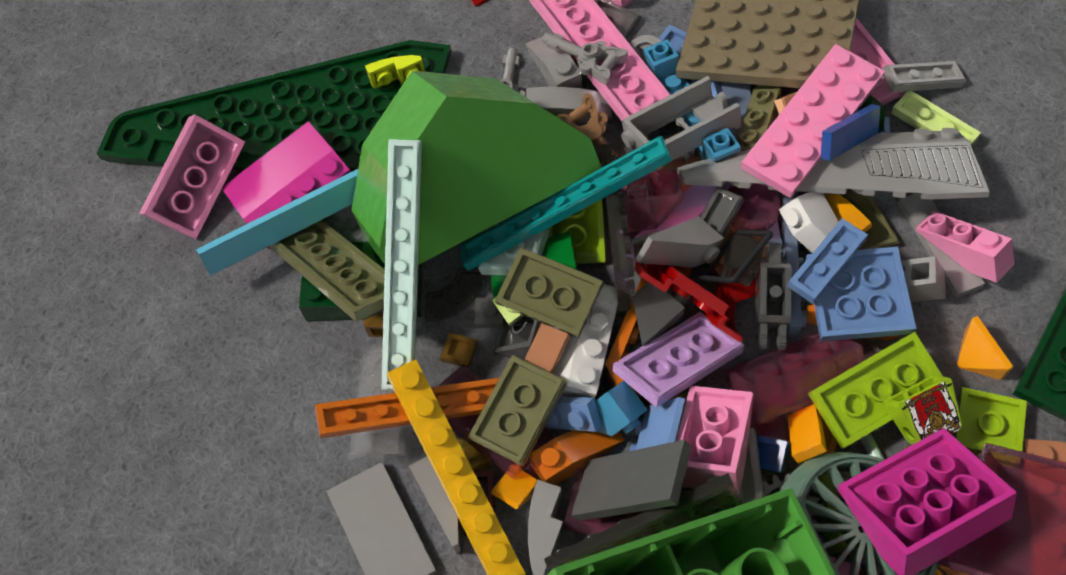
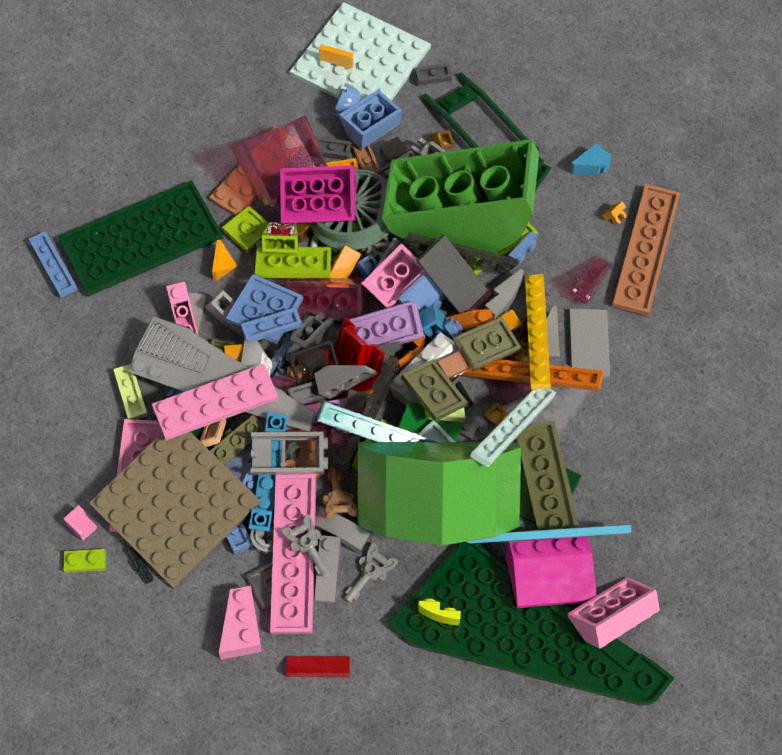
camera: 160 degrees left, 0 degrees up
(850, 132) = (214, 376): blue tile -> none
(923, 76) = (112, 421): light grey tile -> none

